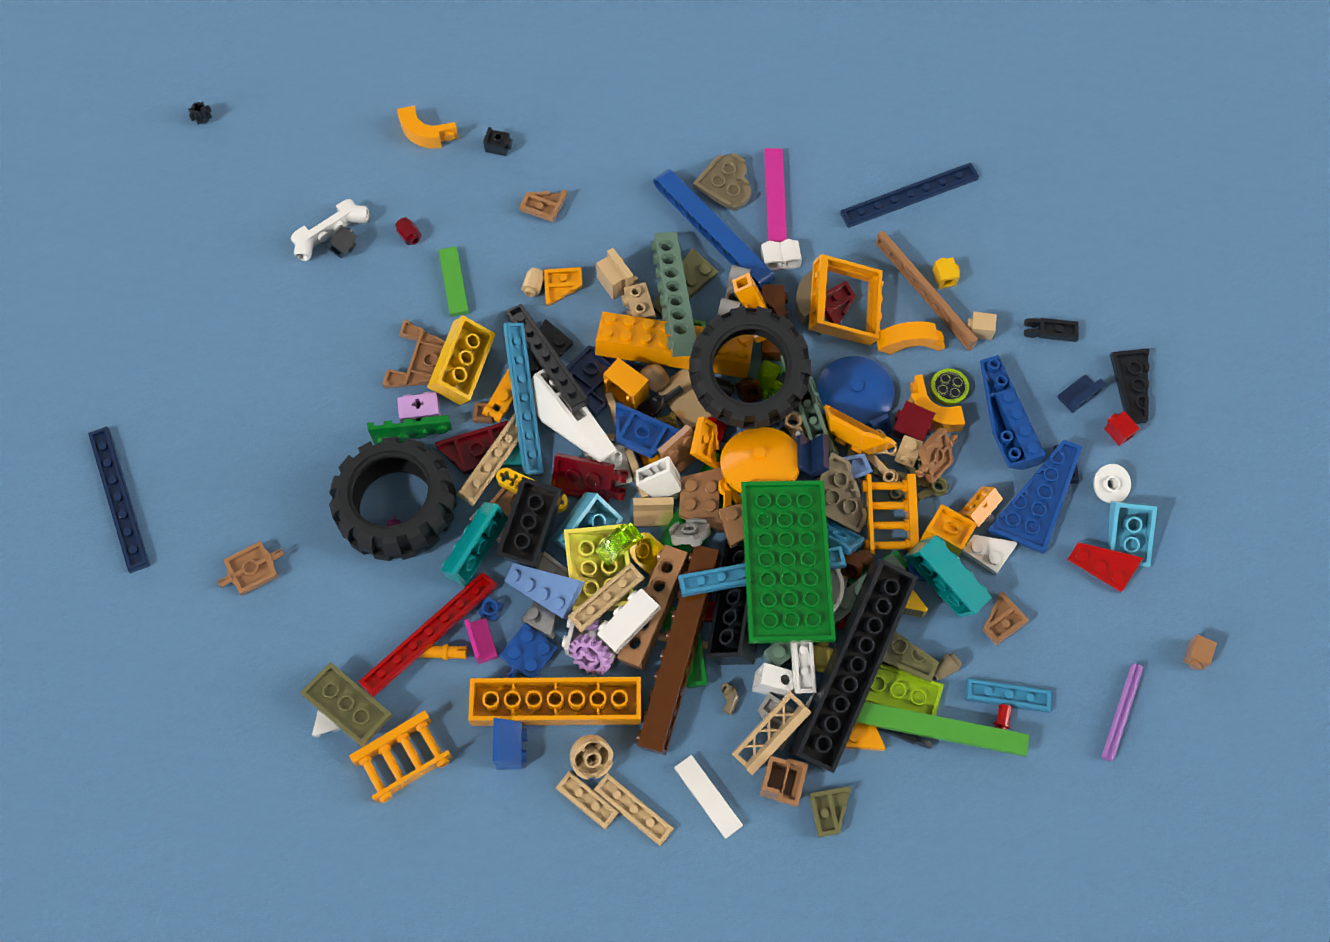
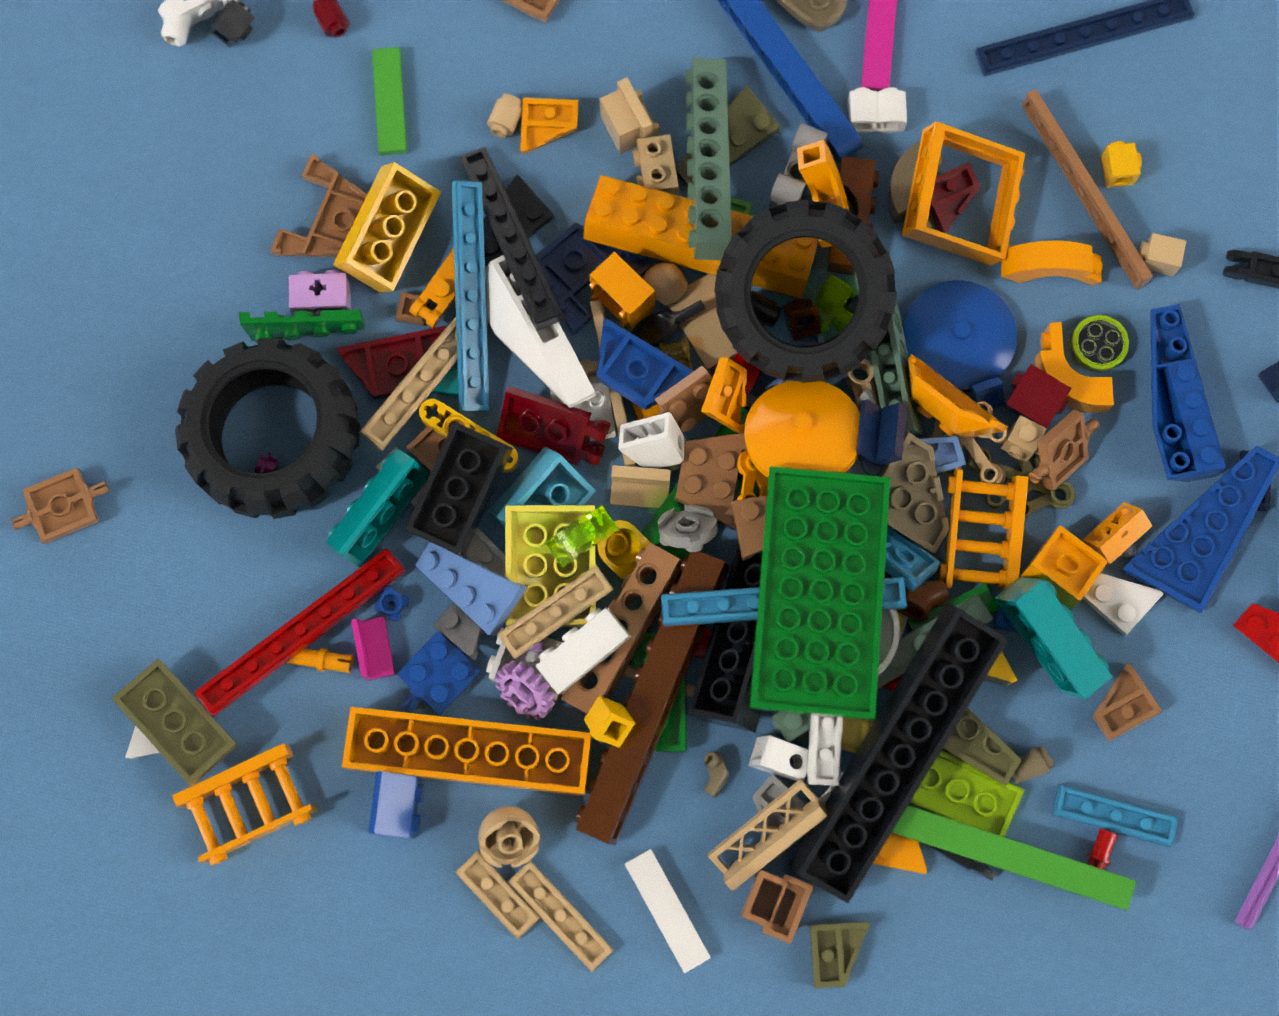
camera: 10 degrees right, 10 degrees up
(652, 667) = (609, 721): none -> yellow brick

